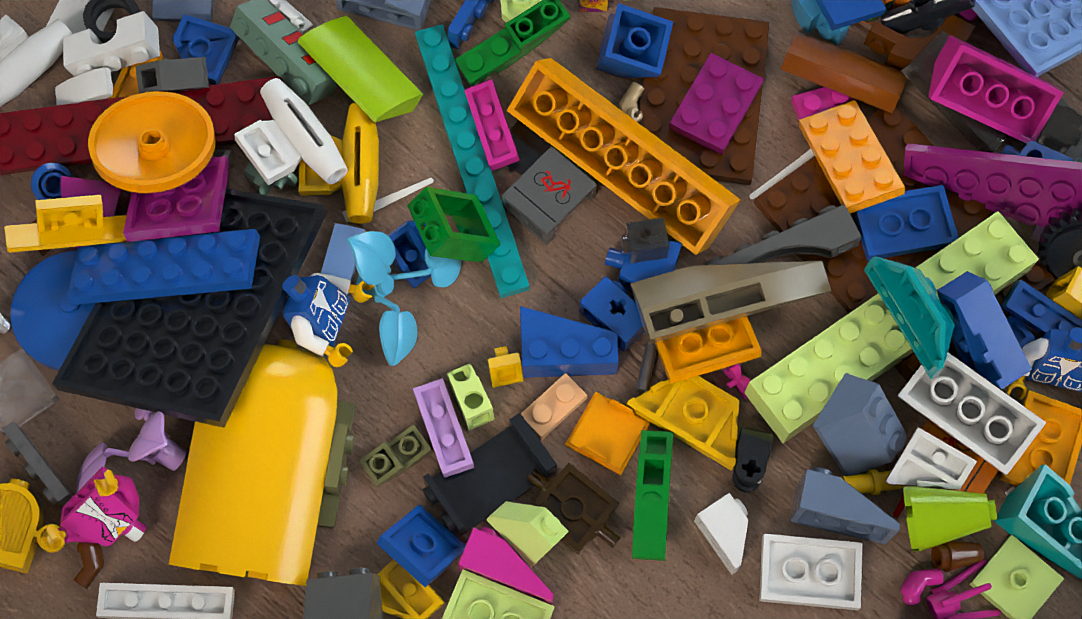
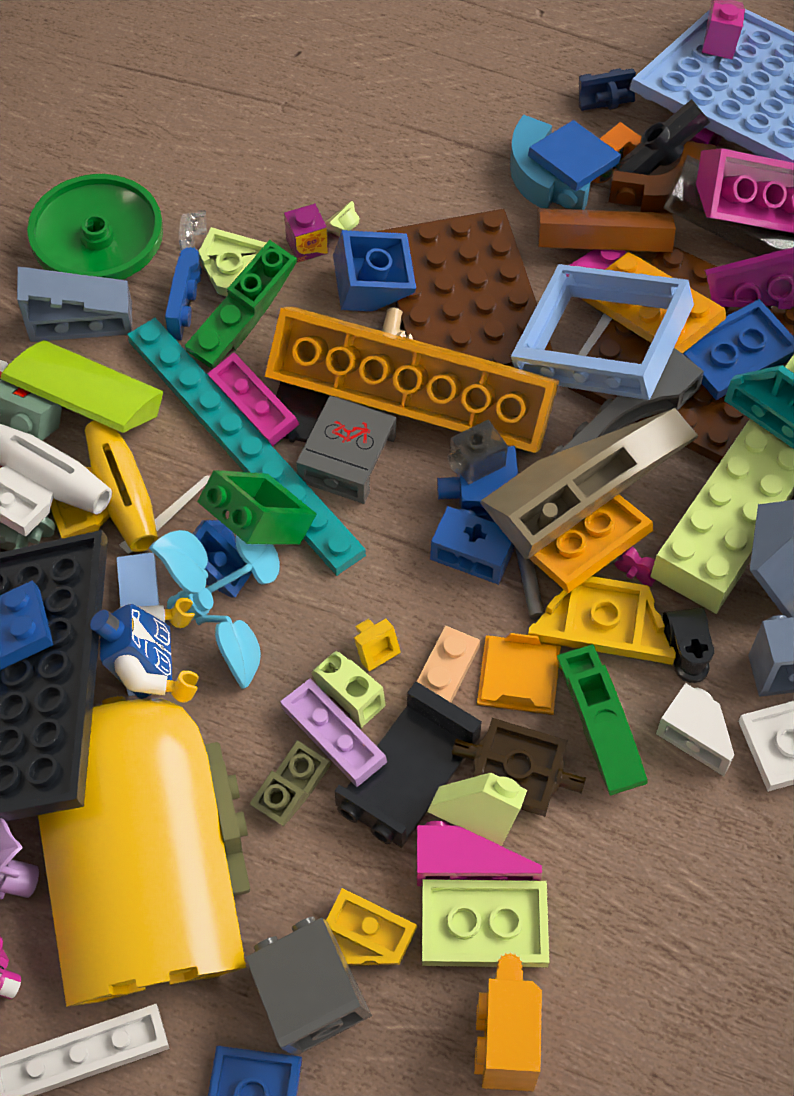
camera: 20 degrees left, 10 degrees down
(421, 545) = (364, 869): blue plate -> none
(565, 346) = (434, 594): blue wedge -> none
(716, 103) = (487, 300): magenta plate -> none
(769, 208) = (598, 373): none -> light blue window

